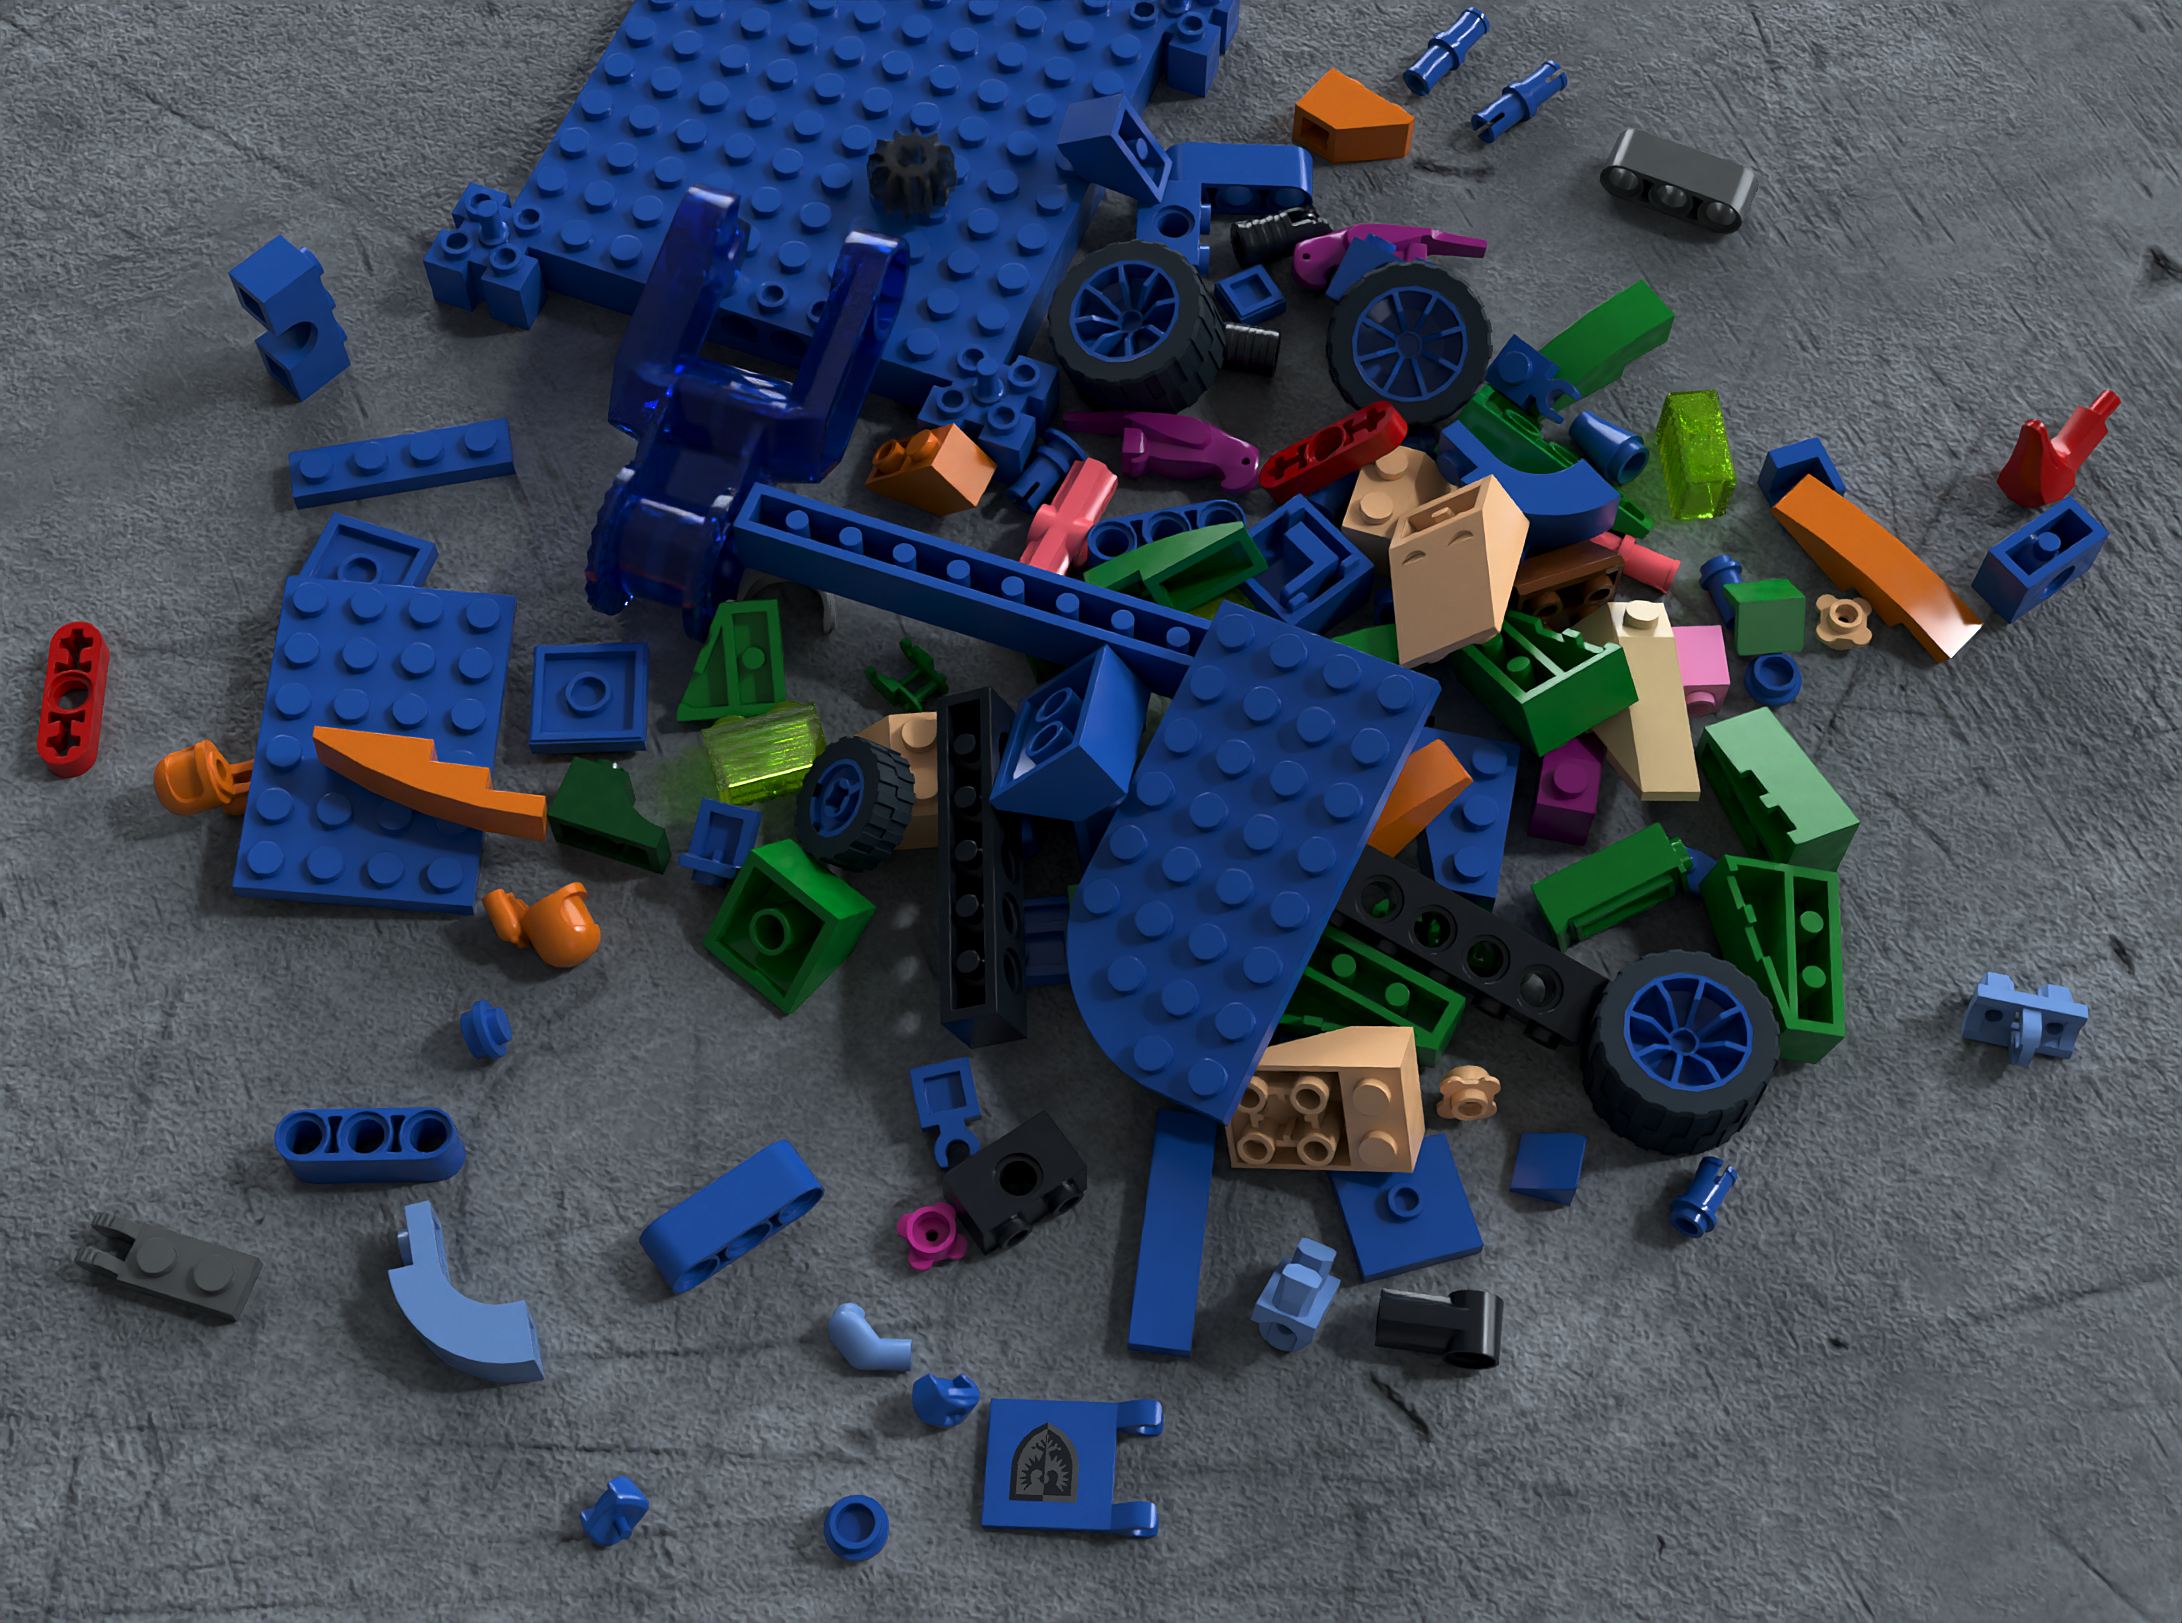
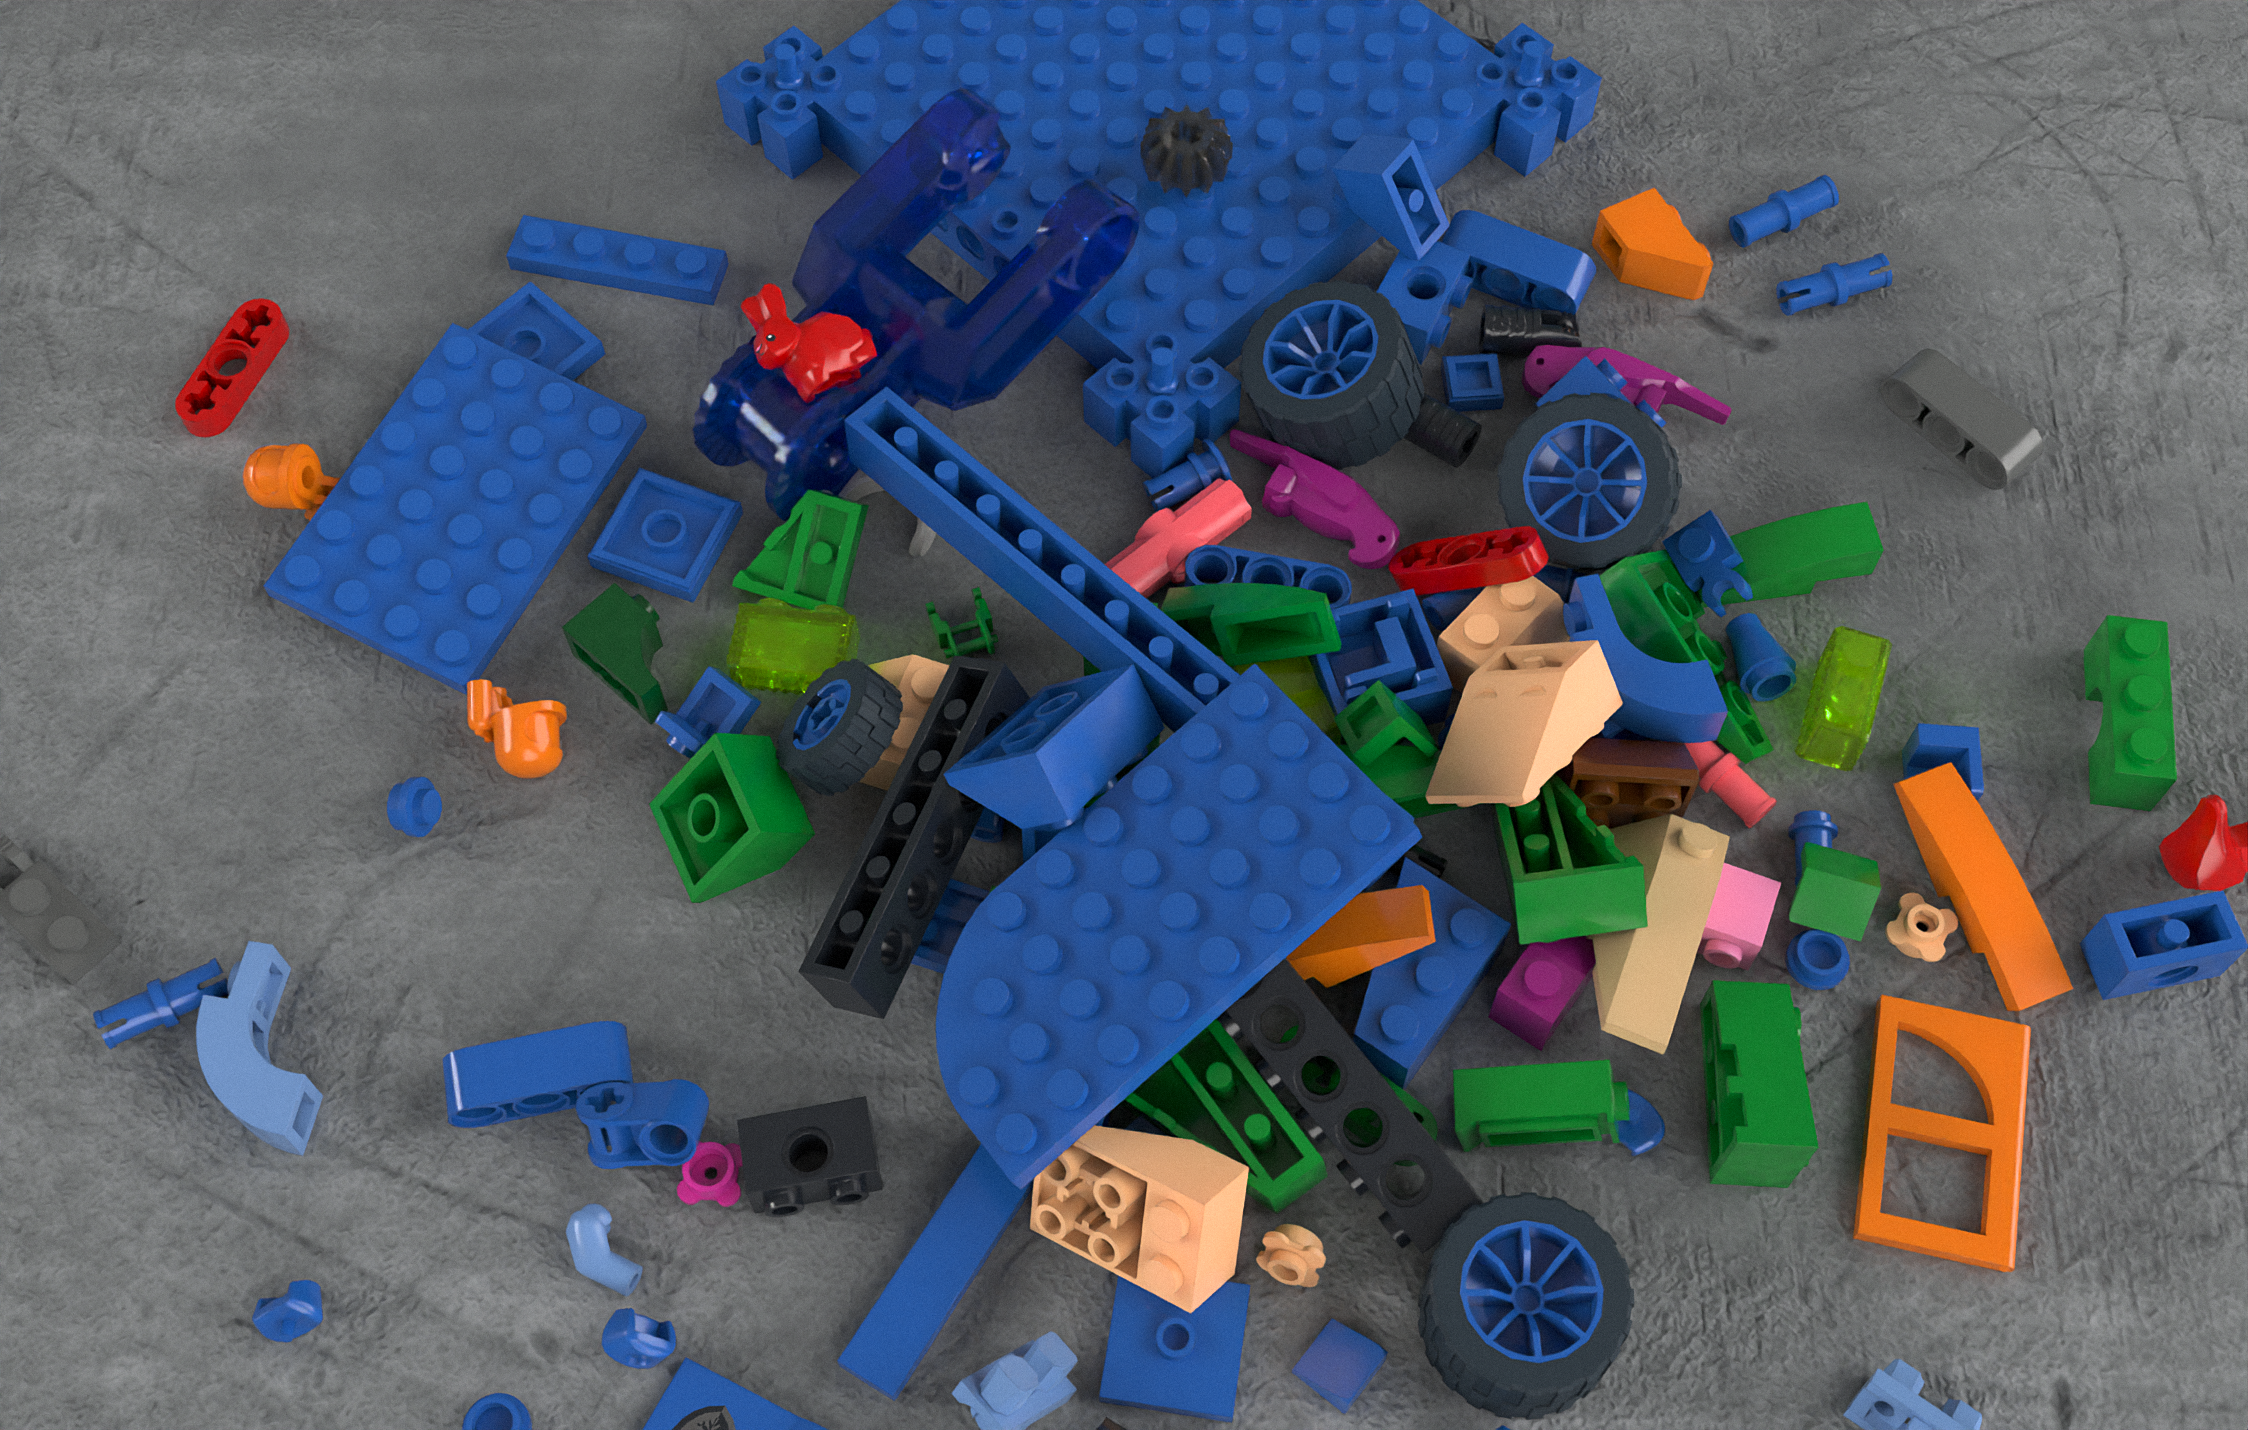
camera: 25 degrees right, 0 degrees up
(288, 298) = (573, 90): blue arch -> none
(341, 1299) = (160, 1003): none -> blue pin
(347, 1129) = (242, 853): blue beam -> none
(410, 774) = (467, 551): orange slope -> none
(676, 474) = (812, 354): none -> red animal
(859, 1216) = (646, 1125): none -> blue piece
(932, 471) = (1081, 439): orange slope -> none
(947, 1101) = (788, 1047): blue plate -> none
(1333, 614) = (1378, 722): none -> green panel
(1785, 935) = (1685, 1244): green wedge -> none
(1945, 406) = (2135, 748): none -> green arch
(1950, 707) = (1998, 1063): none -> orange window

